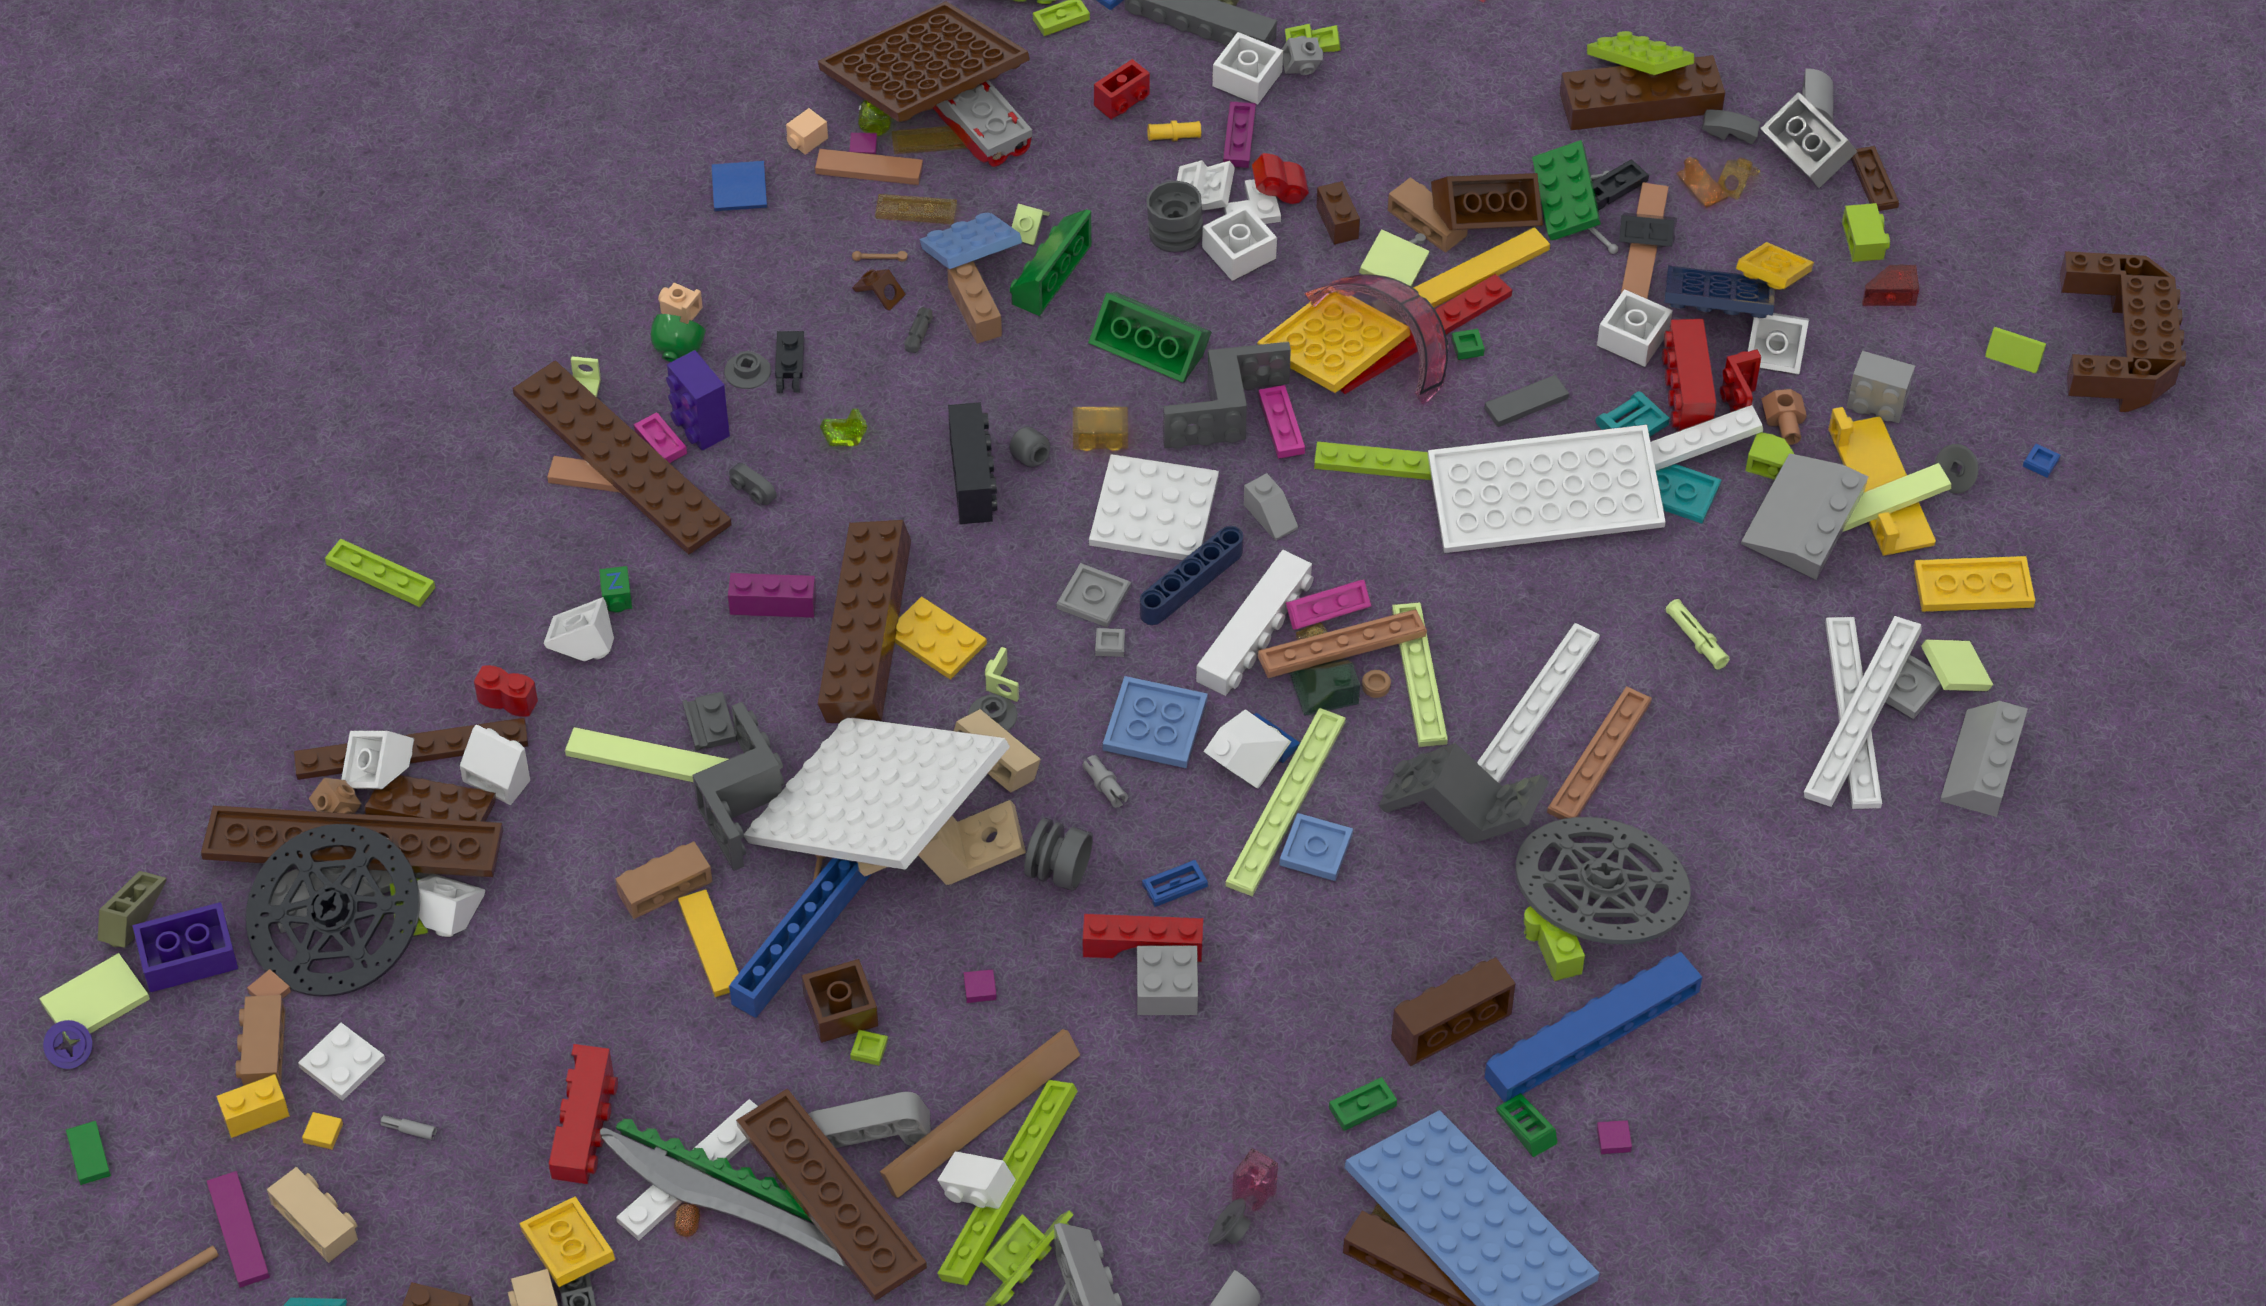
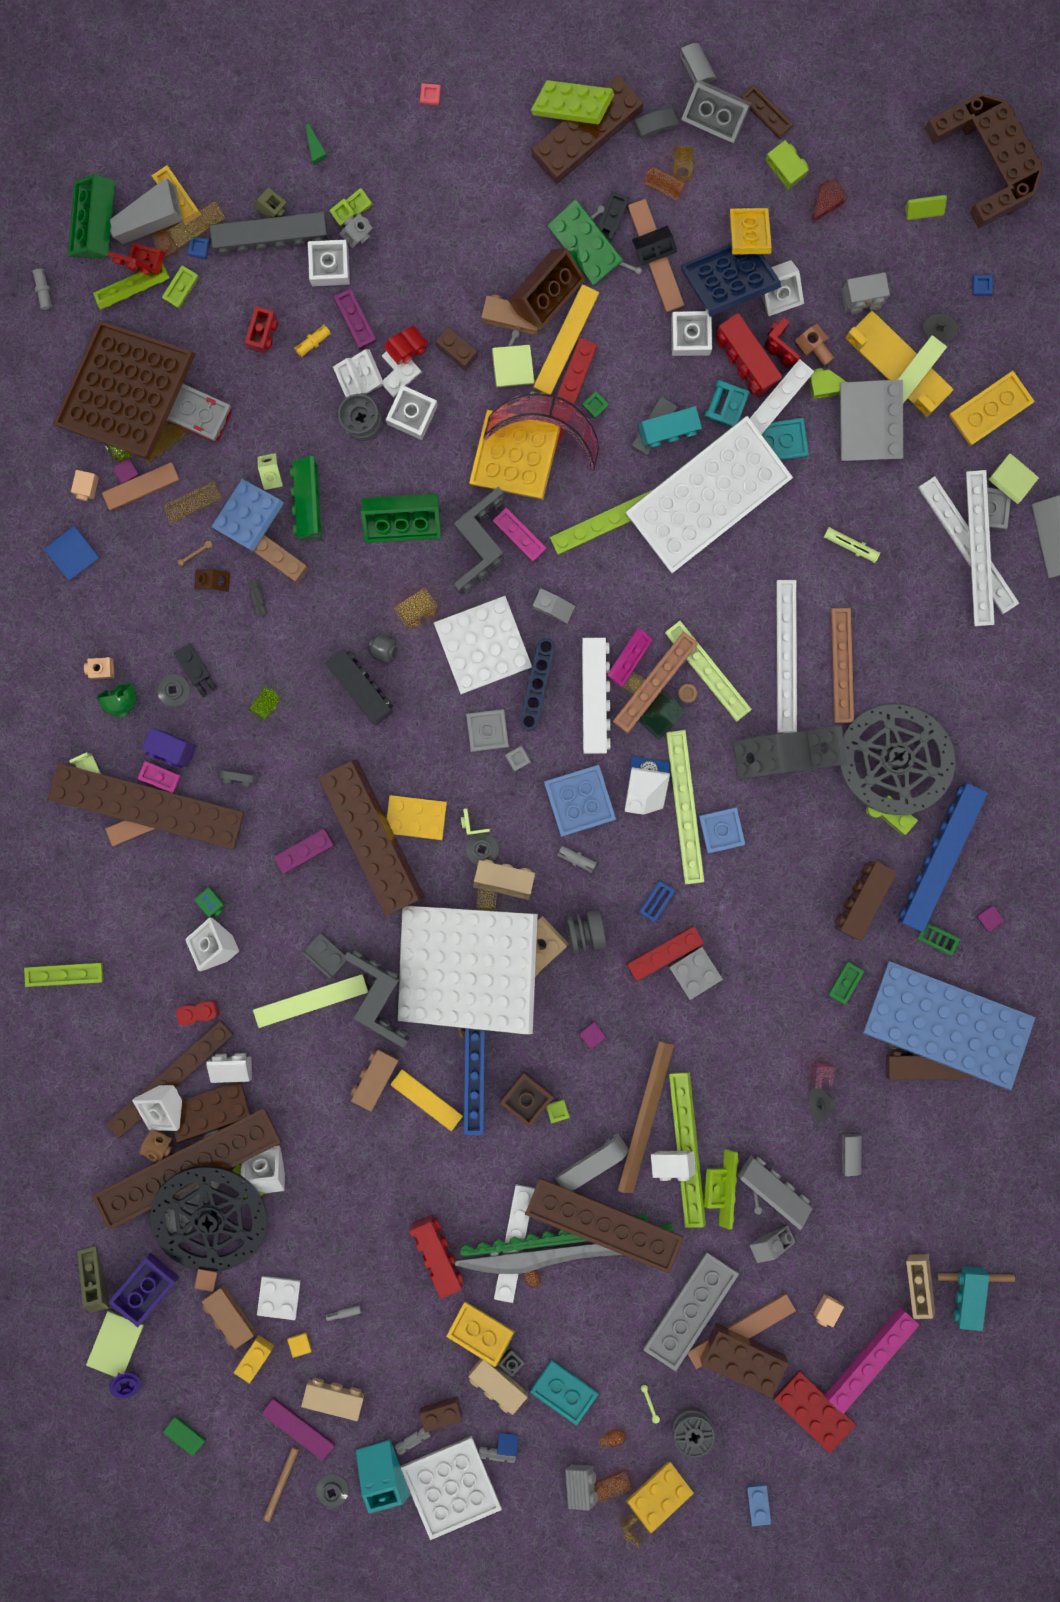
camera: 30 degrees left, 35 degrees up
(1544, 402) = (670, 427): none -> teal brick

